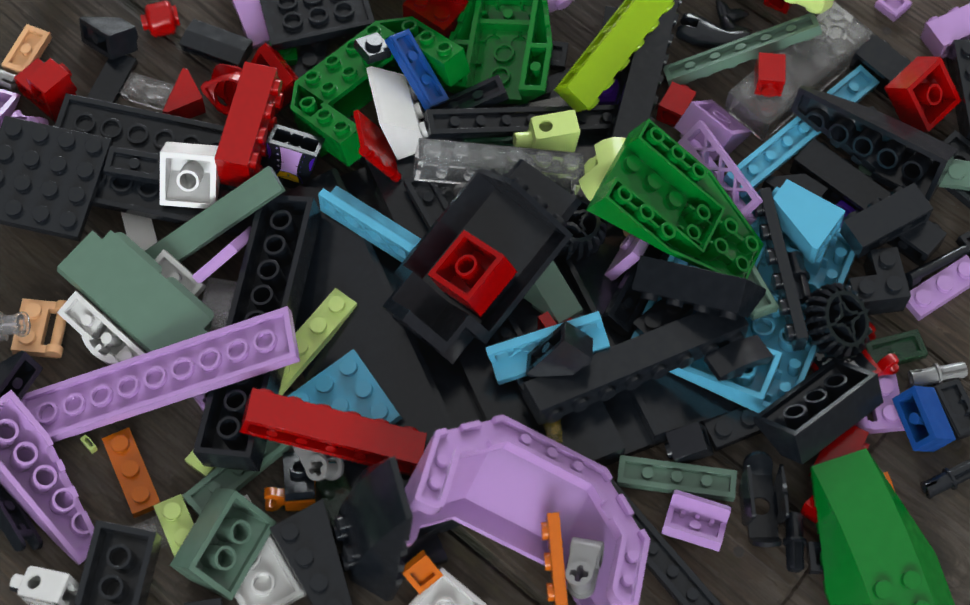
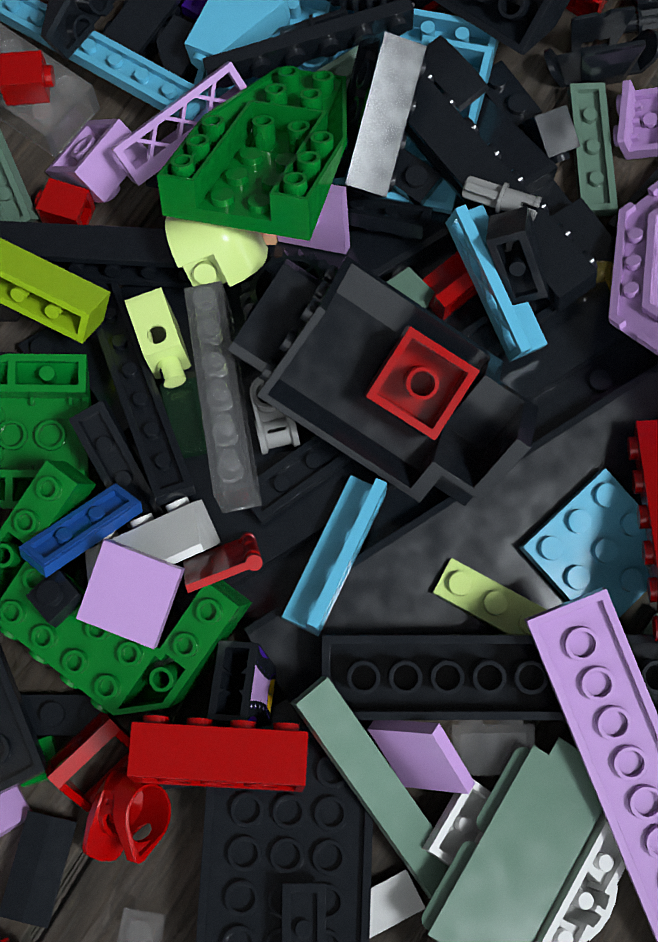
camera: 95 degrees left, 10 degrees up
(185, 98) = (148, 892): red slope -> none
(188, 175) = (304, 835): white slope -> none
(362, 84) = (130, 593): none -> lavender tile
(609, 355) = (498, 196): none -> light grey axle

